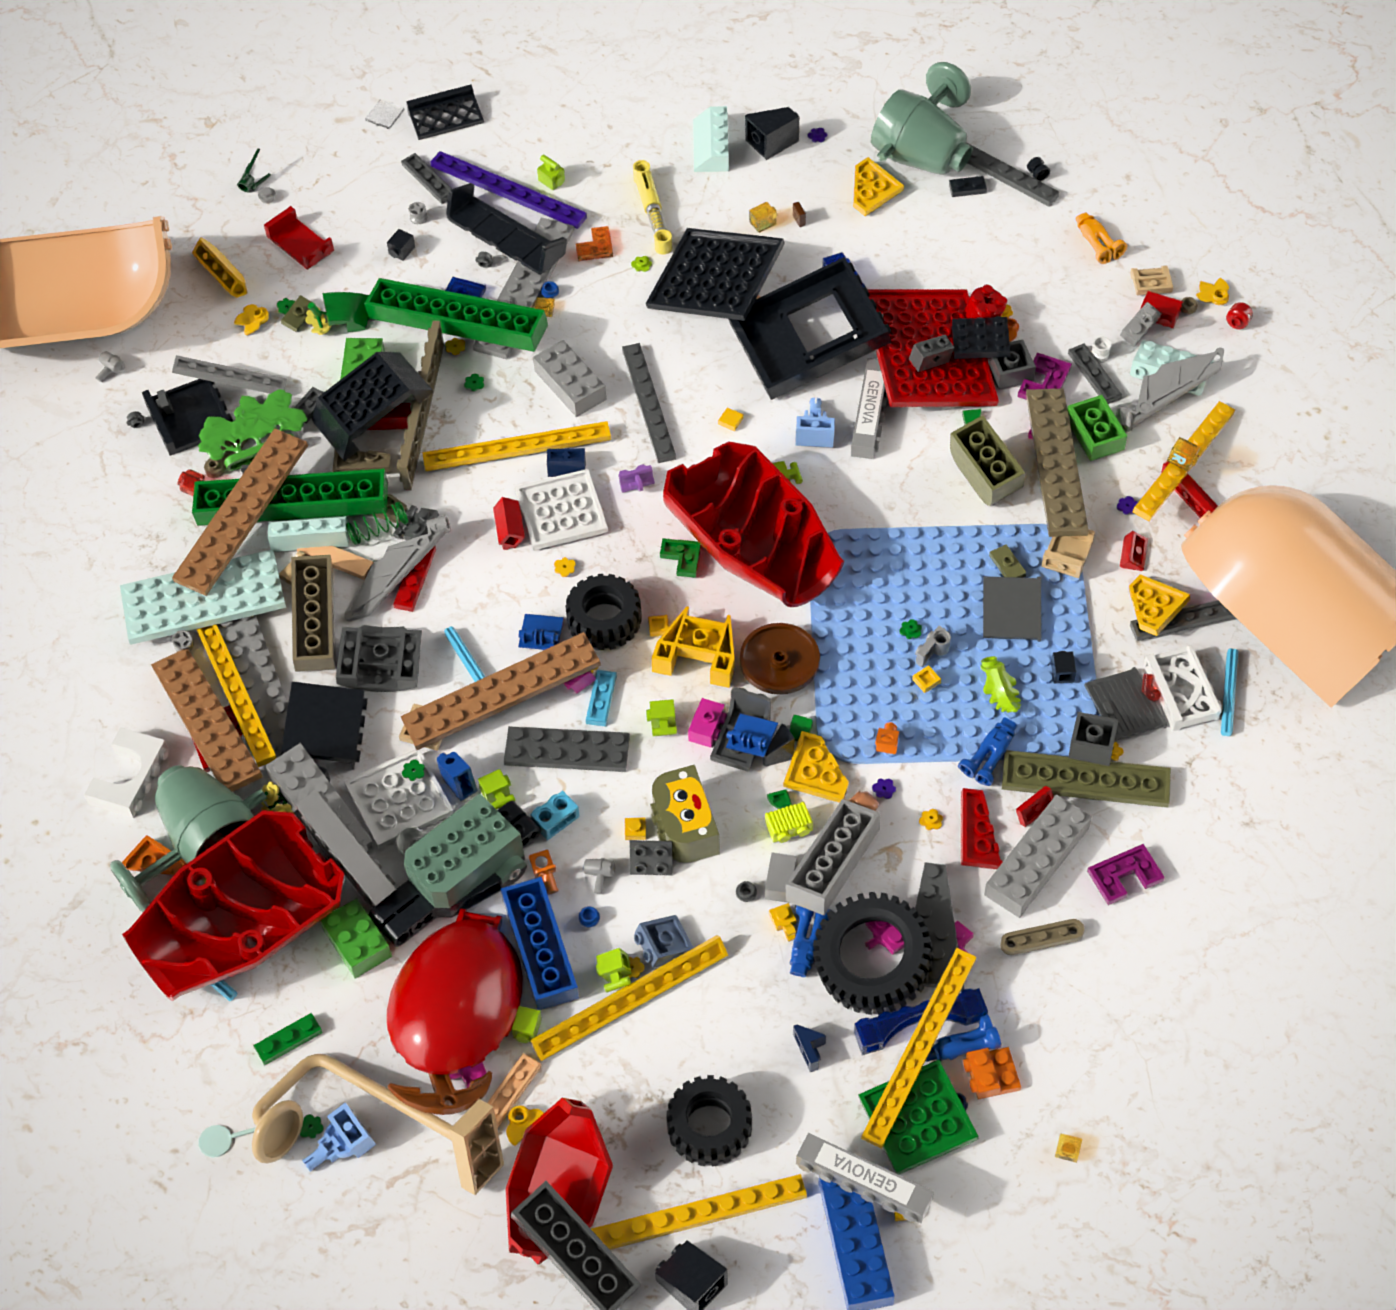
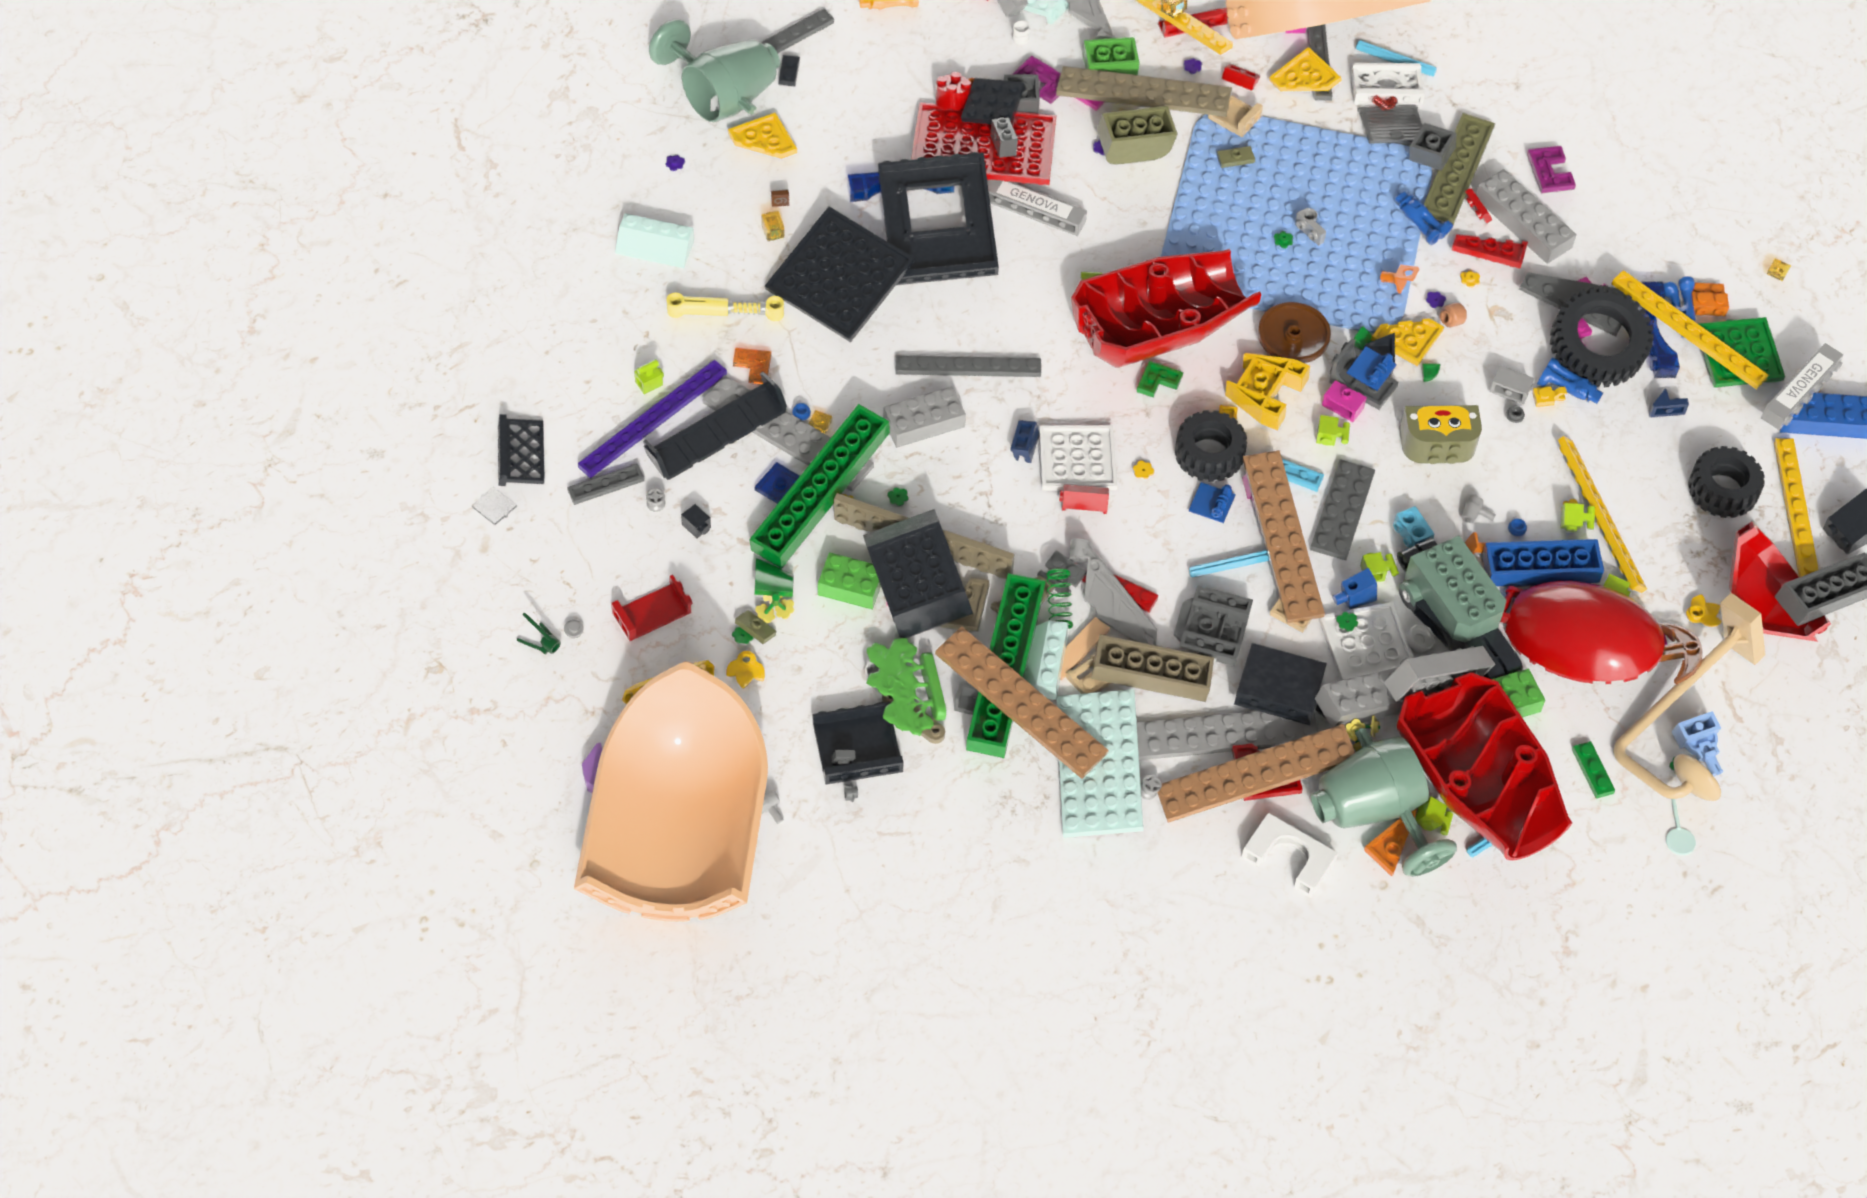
camera: 80 degrees left, 0 degrees up
(187, 480) = (953, 751): clear red head -> none
(227, 375) = (831, 692): light grey plate -> none
(237, 695) = (1225, 746): yellow plate -> none
(308, 402) = (879, 633): dark grey plate -> none
(484, 259) = (741, 456): dark grey plate -> none
(513, 1086) = (1667, 614): light nougat tile -> none
(516, 446) = (991, 472): yellow plate -> none
(635, 828) = (1436, 477): yellow plate -> none
(636, 478) = (1063, 391): medium lavender hips -> none
(641, 264) = (790, 335): lime plant -> none
(650, 857) = (1475, 469): dark grey hinge -> none
(662, 940) = (1554, 479): sand blue plate -> none
(730, 419) = (1009, 309): yellow tile -> none
(772, 130) = (671, 189): black slope -> none
(789, 822) = (1458, 368): neon yellow brick -> none
(815, 429) = (1045, 249): light blue brick -> none
(832, 857) = (1508, 339): light grey brick -> none
(926, 679) = (1341, 239): yellow plate -> none
(970, 415) = (1065, 141): green tile -> none
(1000, 685) = (1359, 195): lime plant -> none
(1012, 608) = (1283, 166): dark grey piece -> none
(1038, 169) = (789, 16): black wheel -> none
(1042, 937) = (1596, 235): dark tan plate -> none
(1063, 667) = (1353, 148): black brick -> none
(1094, 373) = (1042, 46): dark grey tile -> none

